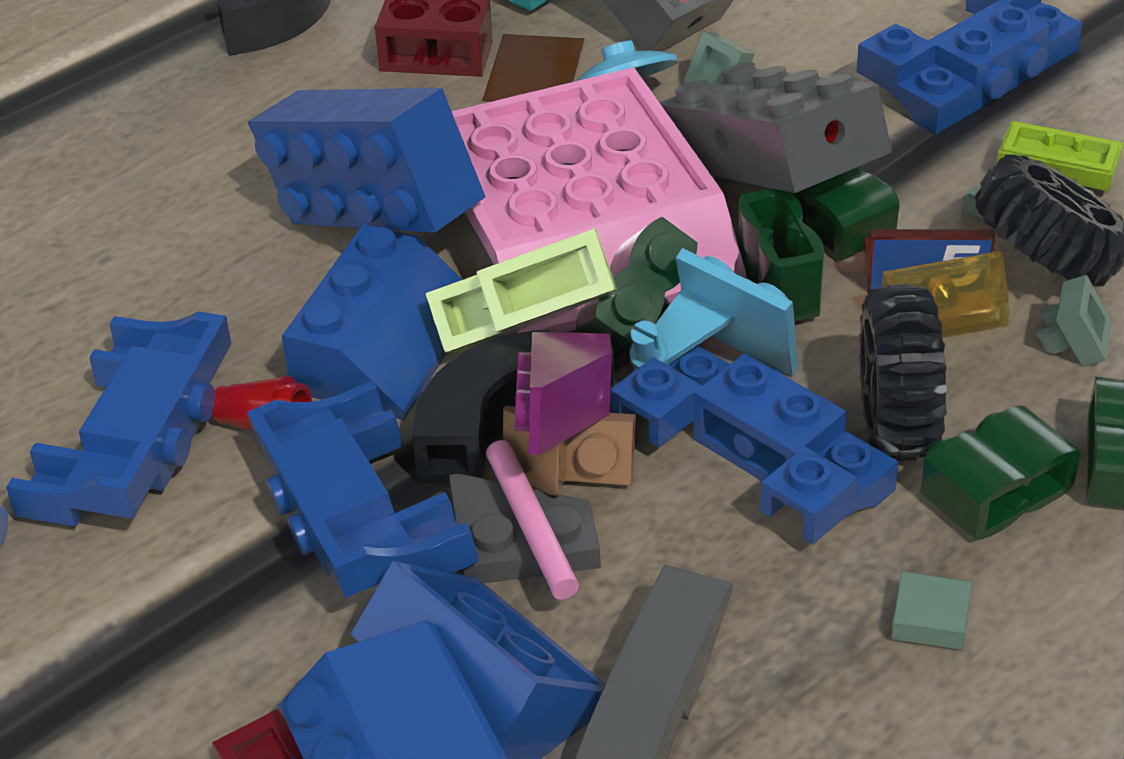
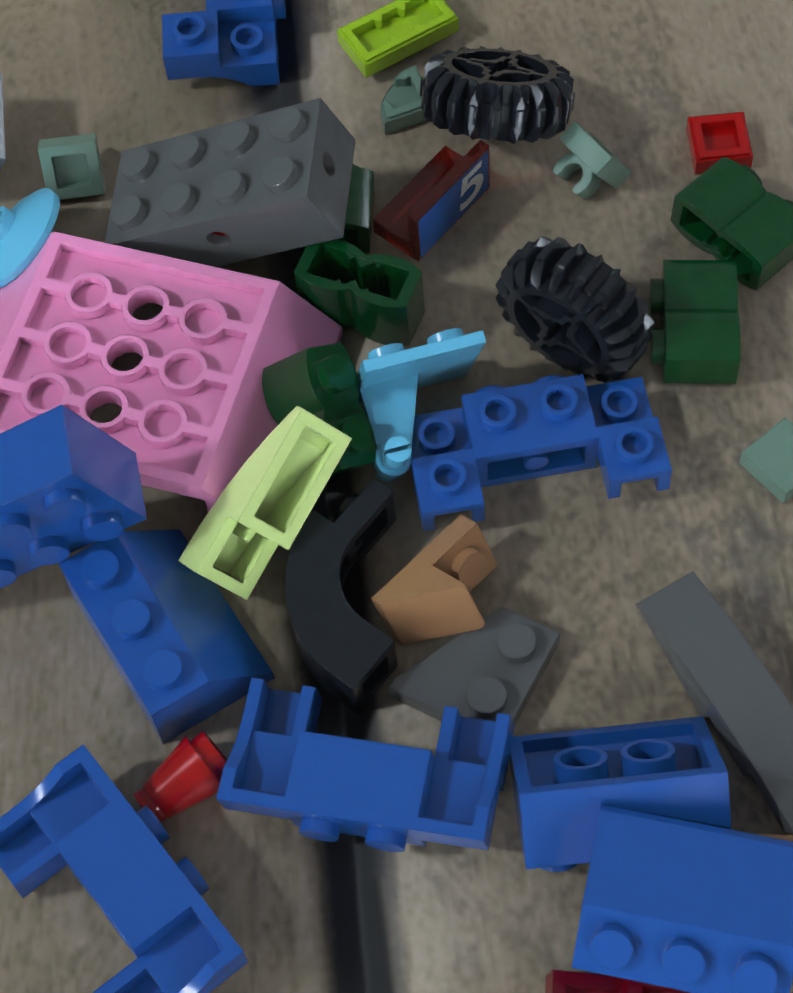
camera: 50 degrees left, 20 degrees up
(532, 520) = (508, 660): bright pink bar -> none
(562, 386) = (407, 541): magenta slope -> none
(966, 290) = (491, 223): clear yellow slope -> none

